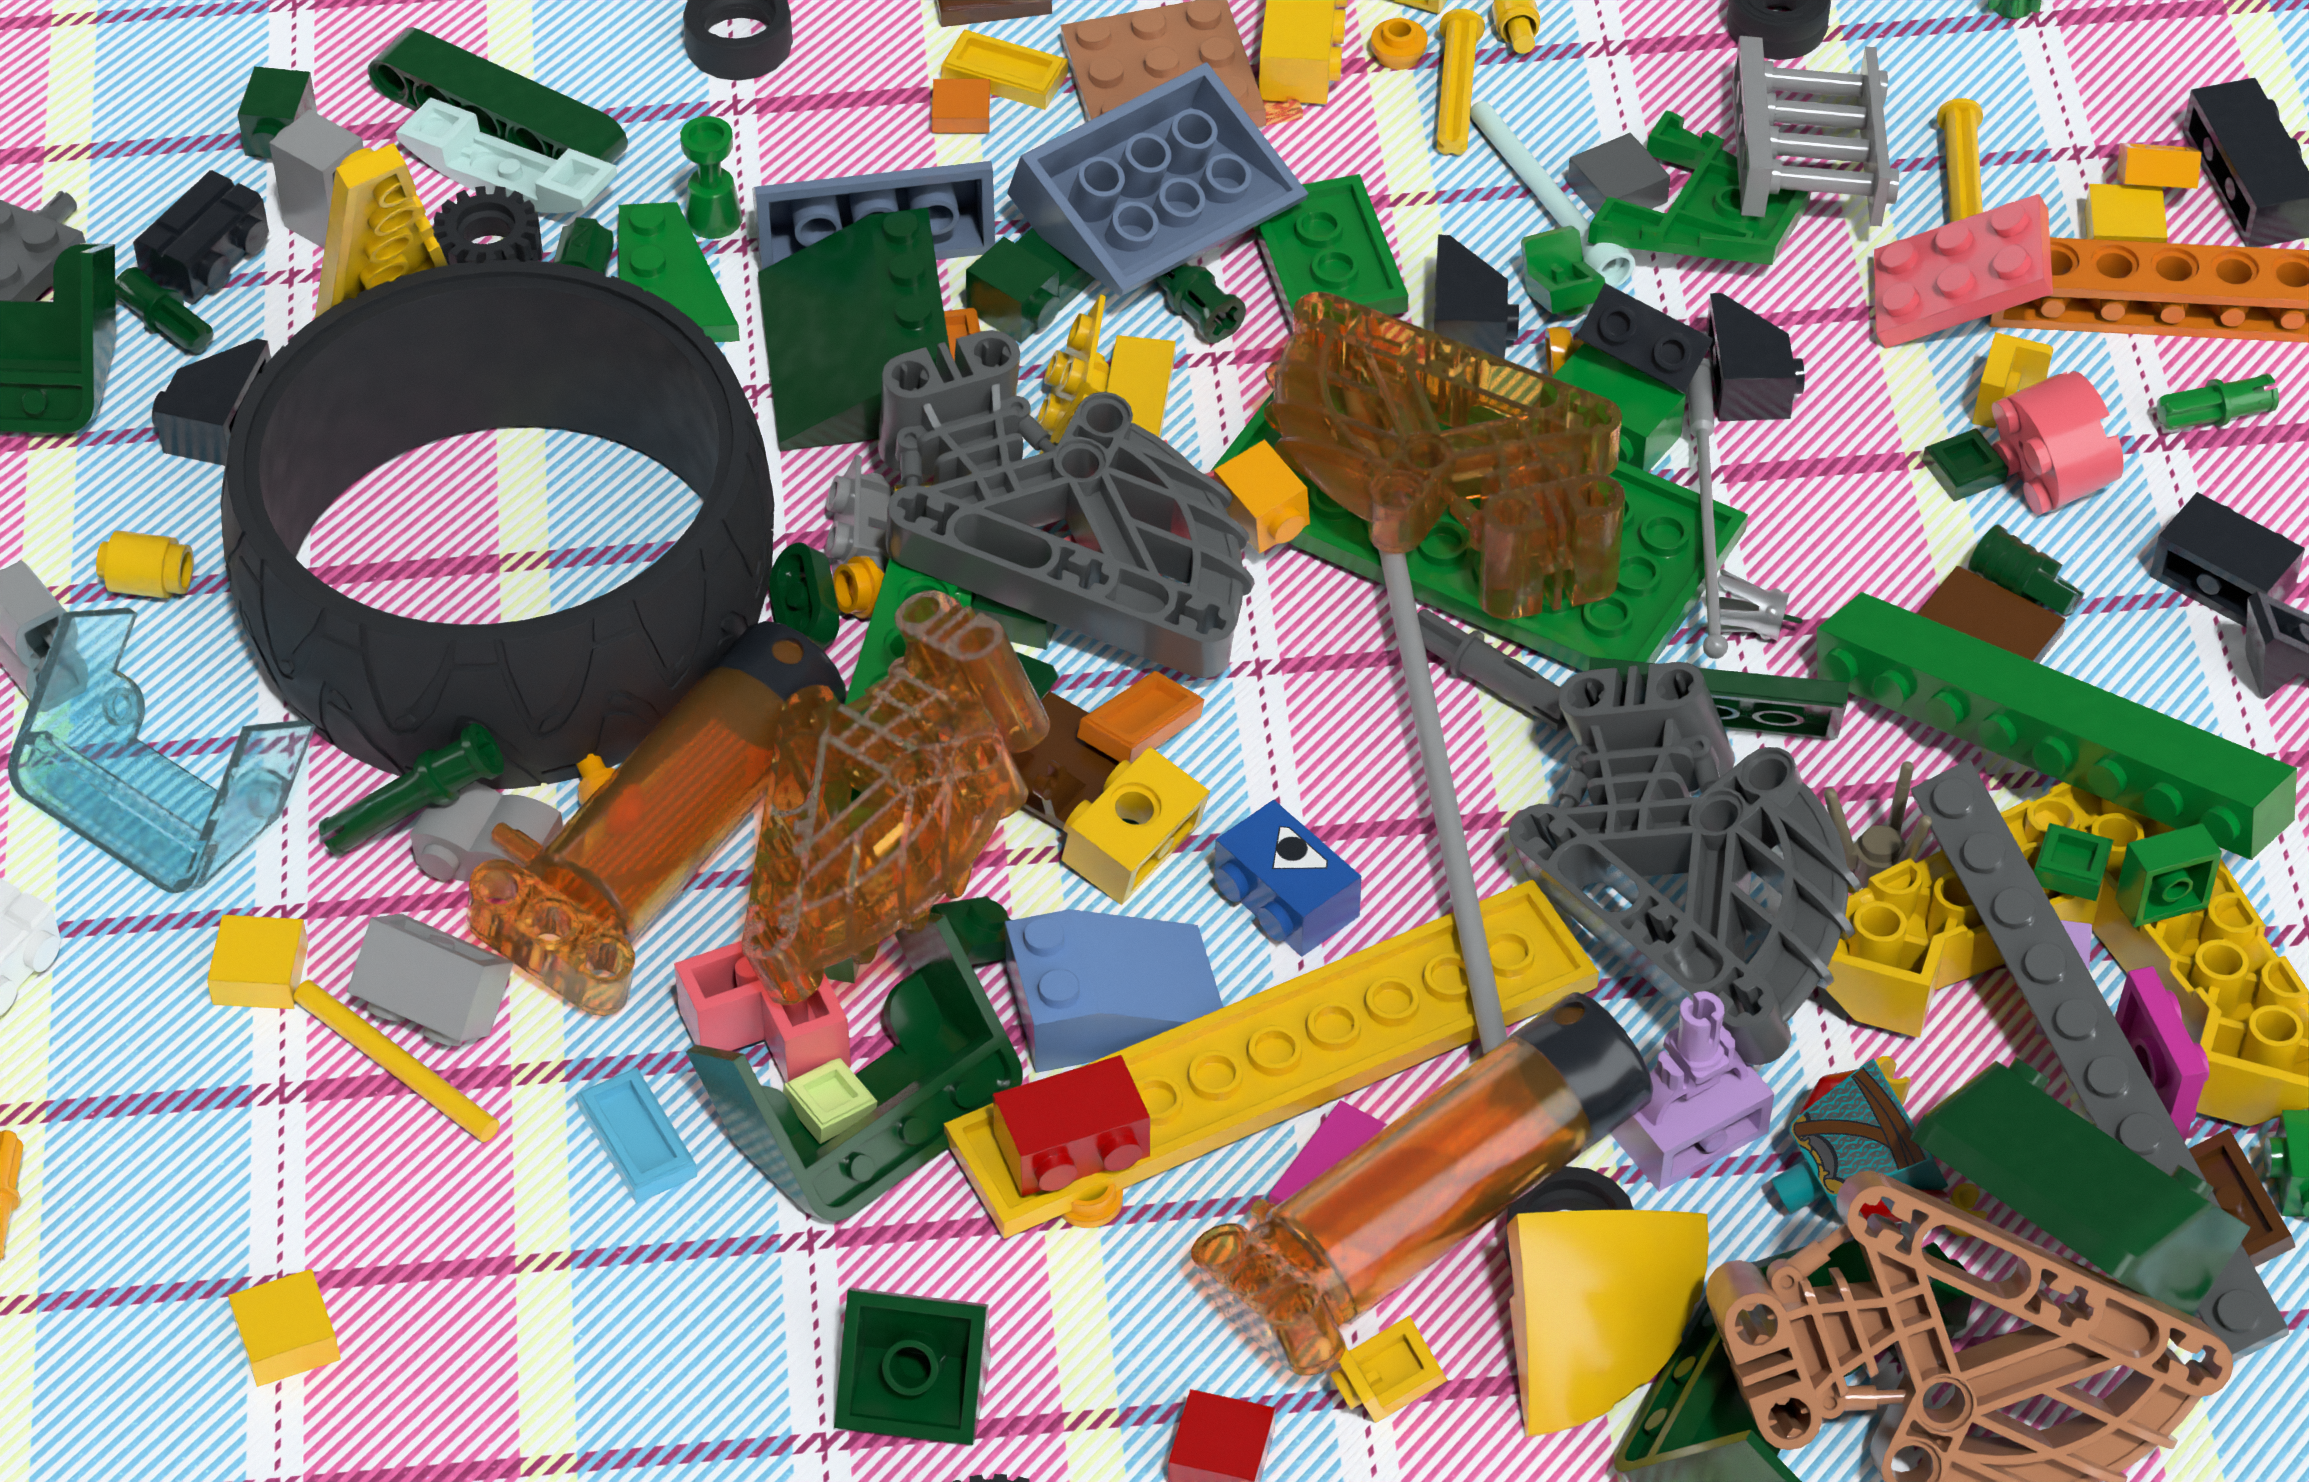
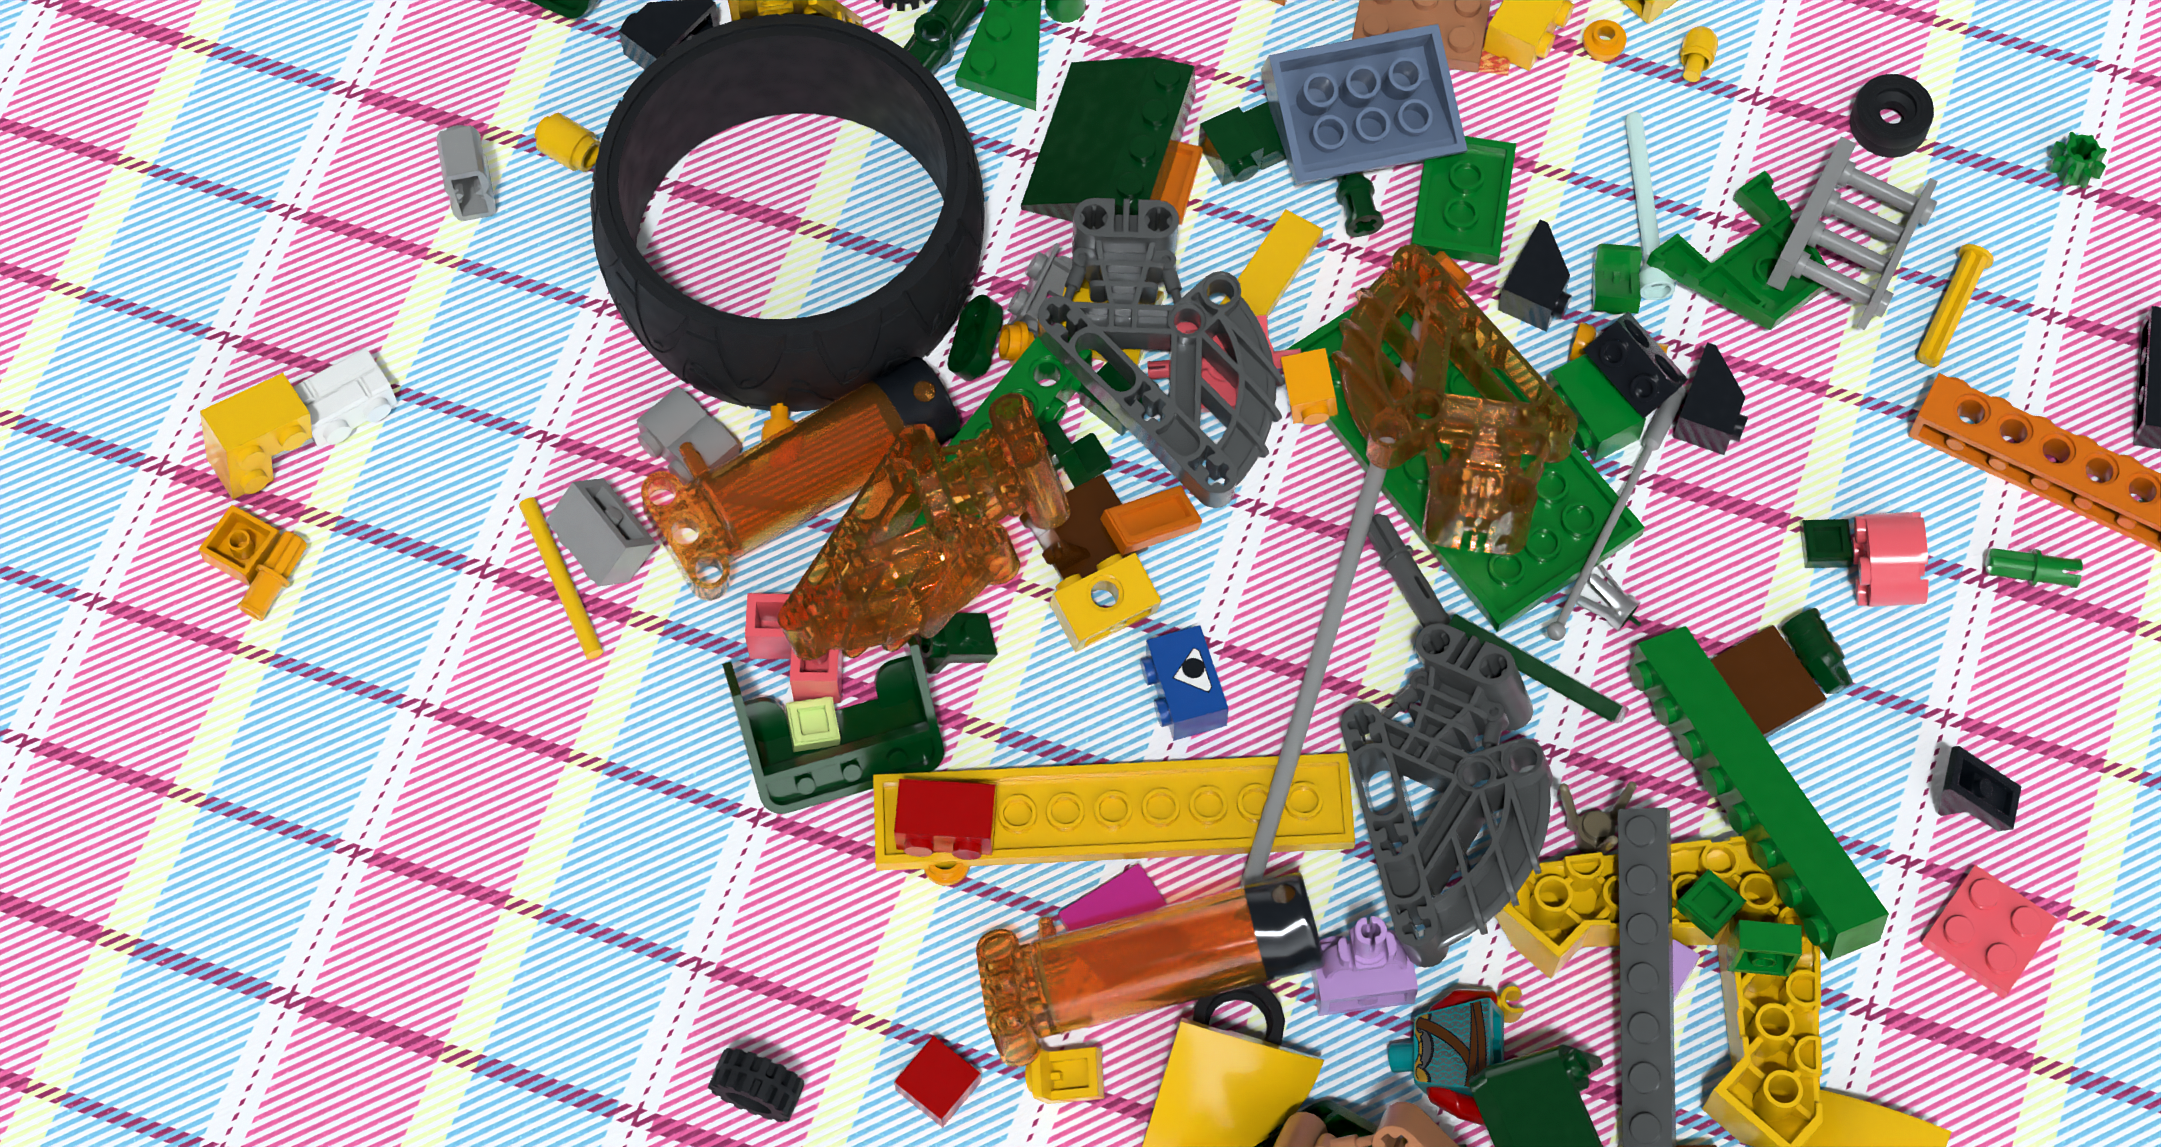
camera: 25 degrees right, 15 degrees up
(92, 774) = (480, 304): clear light blue windscreen -> none
(257, 961) = (507, 470): yellow piece -> none
(284, 1327) = (405, 744): yellow piece -> none
(434, 778) = (662, 390): dark green pin -> none
(636, 1135) = (683, 695): medium azure tile -> none
(806, 211) = (1220, 59): sand blue slope -> none
(913, 1366) = (768, 945): dark green slope -> none
(1074, 373) = (1240, 240): yellow hinge -> none
(1103, 982) = (1031, 713): medium blue slope -> none
(1462, 31) = (1629, 88): yellow axle -> none
(1621, 171) = (1702, 214): dark grey piece -> none
(1962, 271) = (1900, 393): coral plate -> none
(2010, 367) = (1893, 479): yellow bracket -> none
(2125, 213) = (2051, 390): yellow piece -> none
(2158, 165) = (2097, 357): light orange piece -> none
(2162, 1044) = (1694, 1092): dark pink plate -> none
(2224, 558) = (1967, 699): black brick -> none

